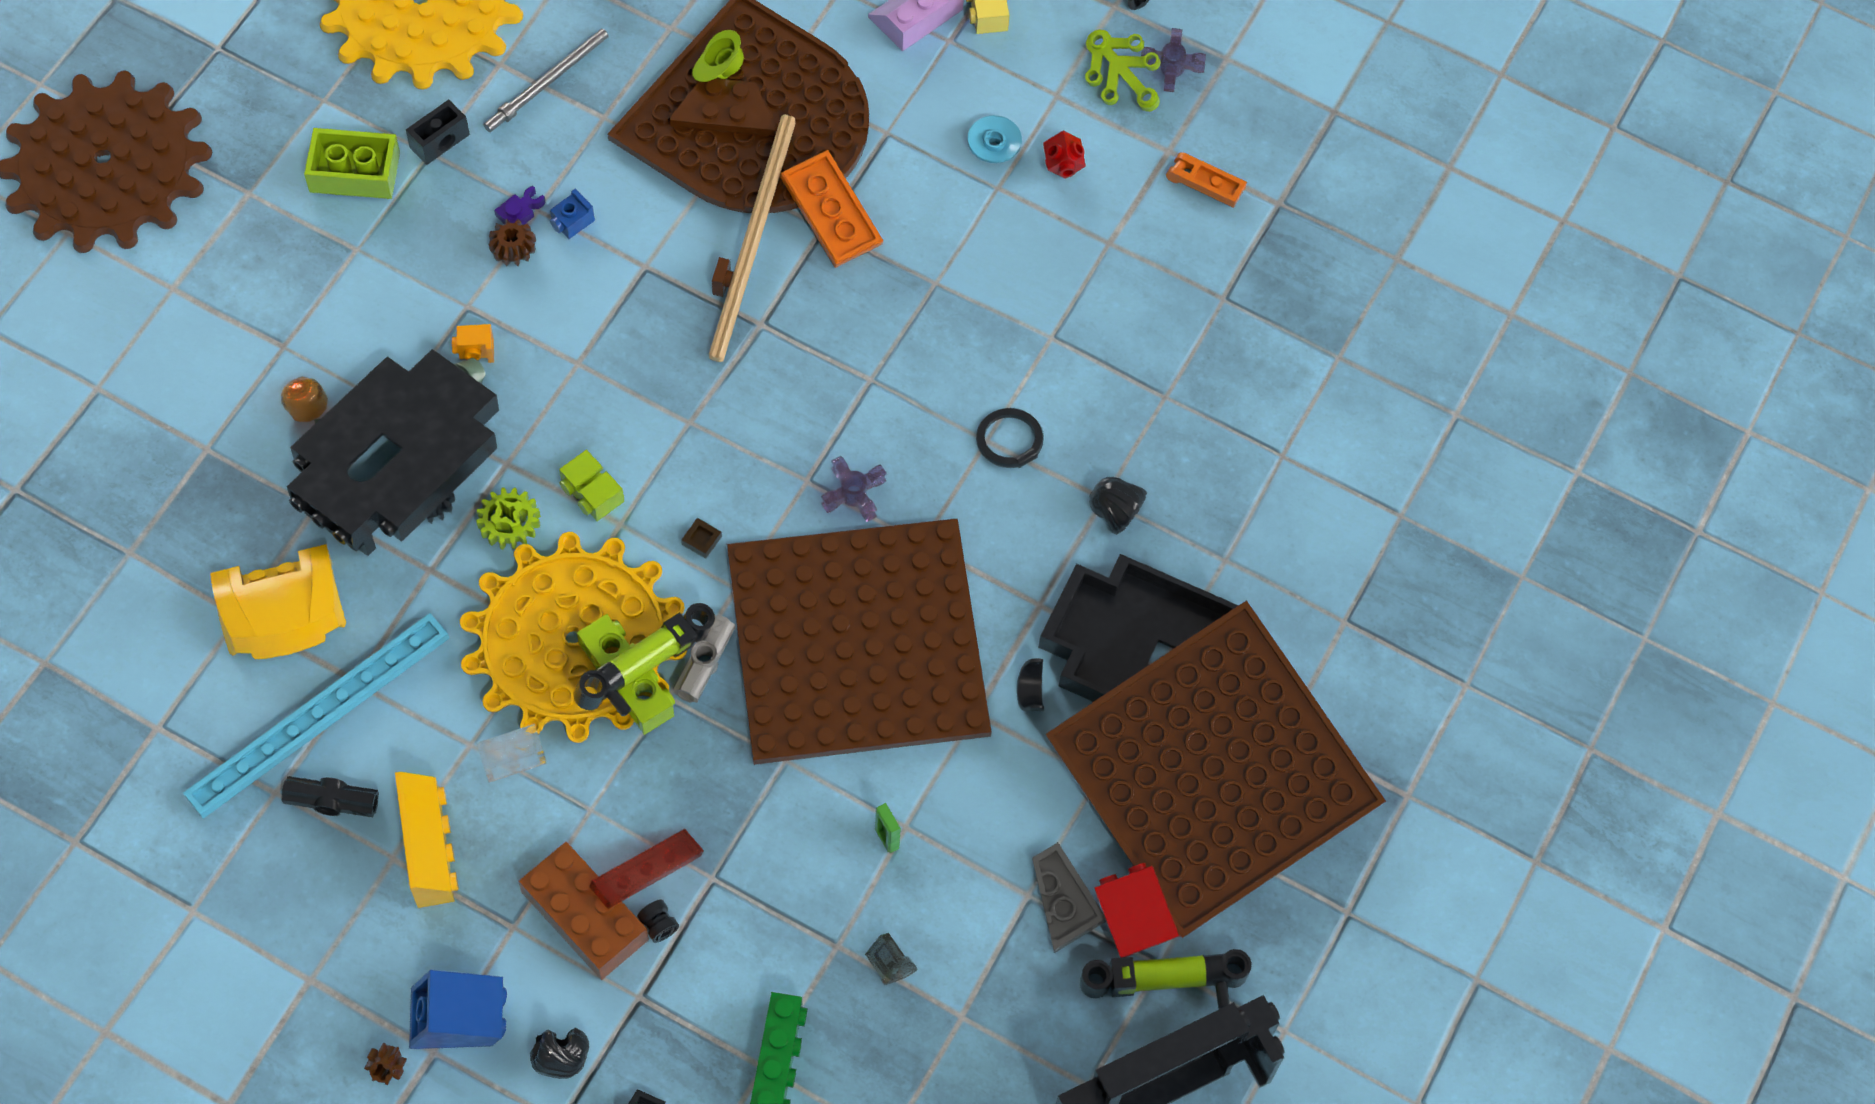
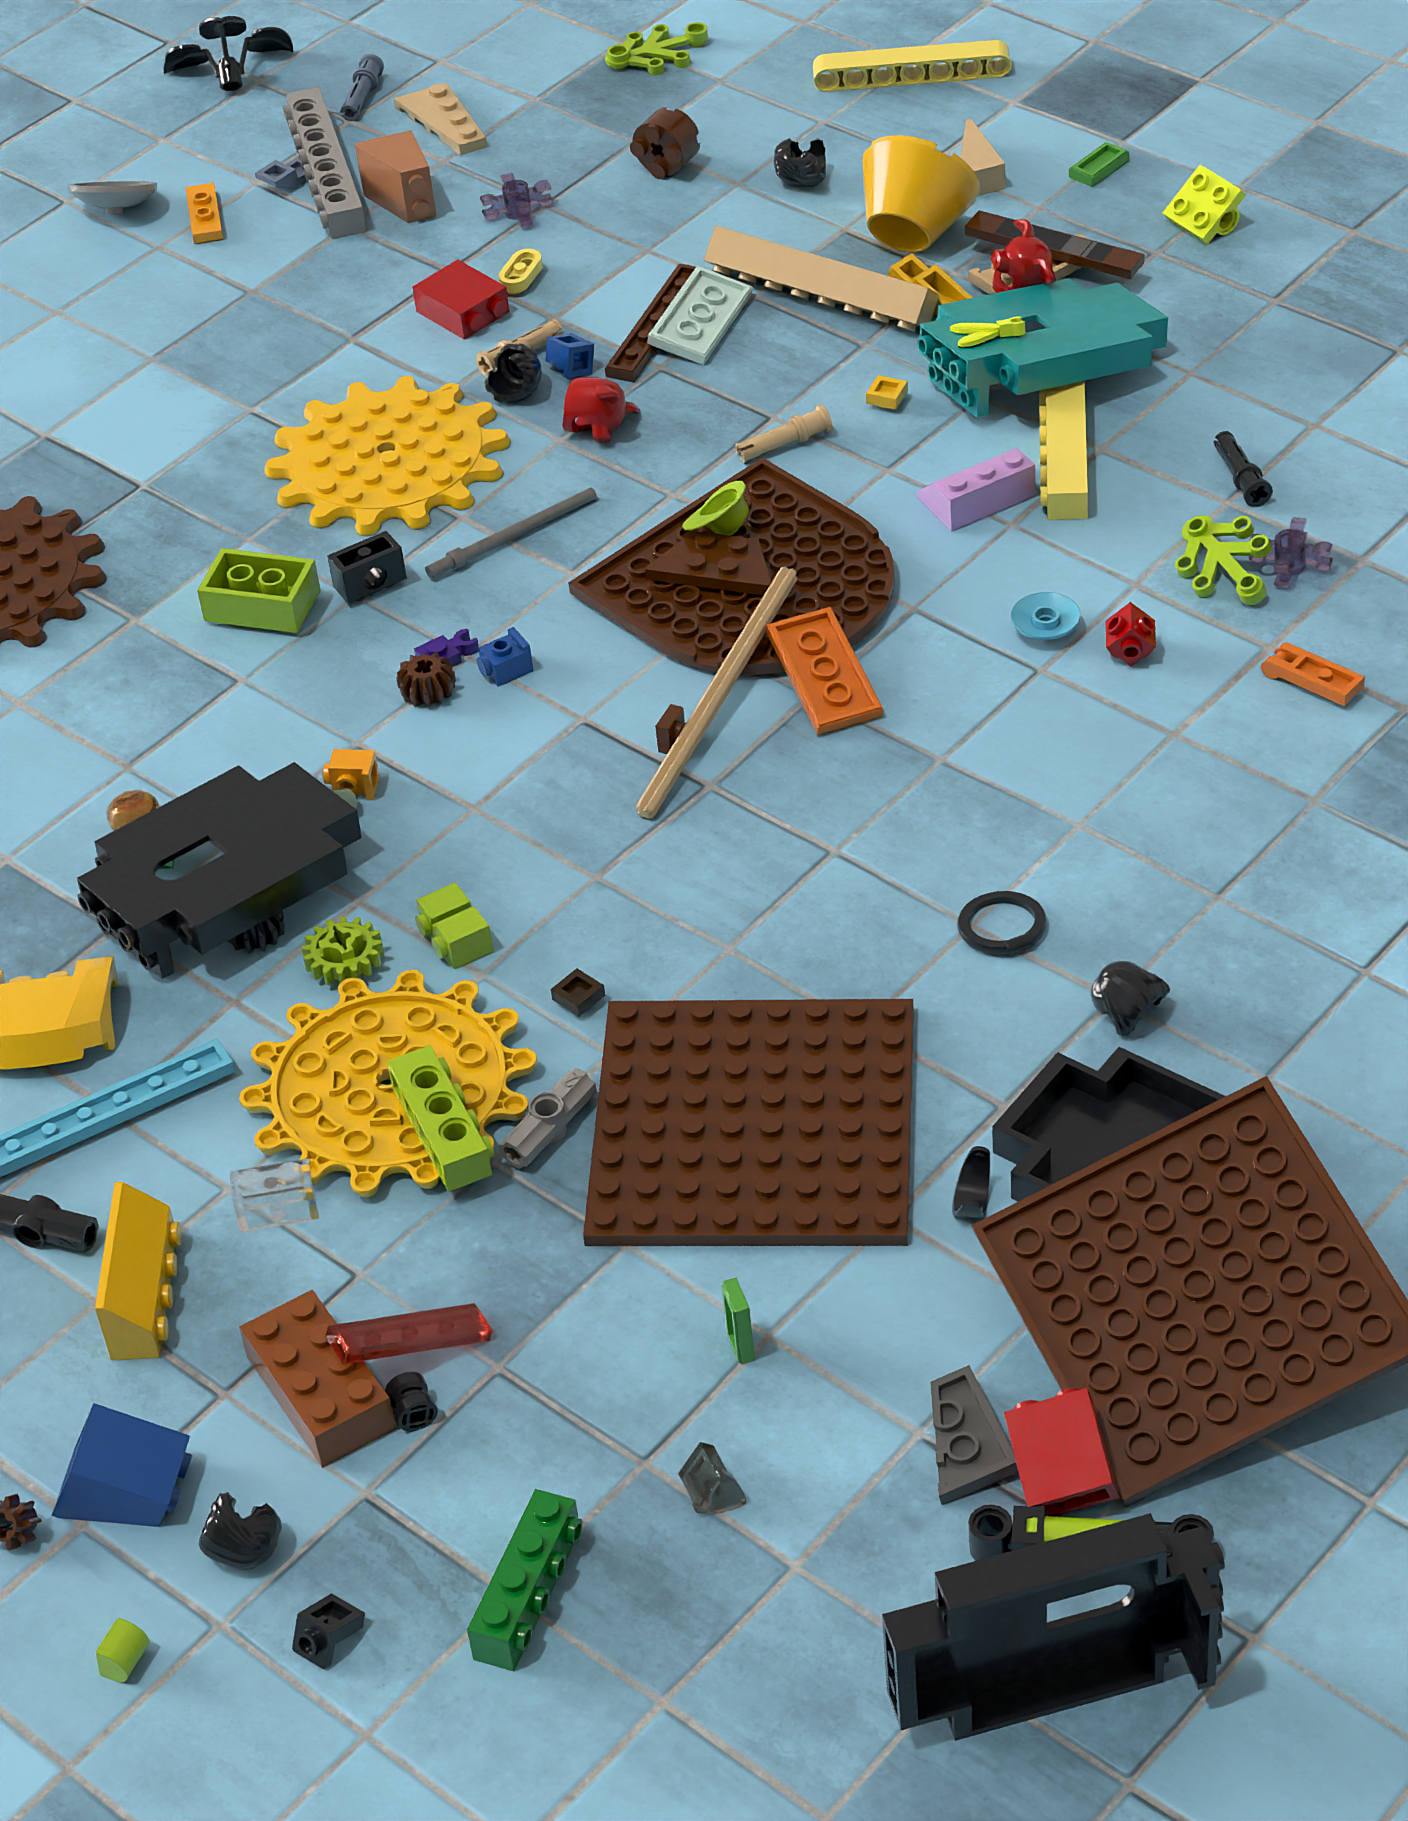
camera: 20 degrees right, 20 degrees down
(670, 640) = (507, 1074): black piece -> none
(859, 498) = (784, 955): clear purple pin -> none

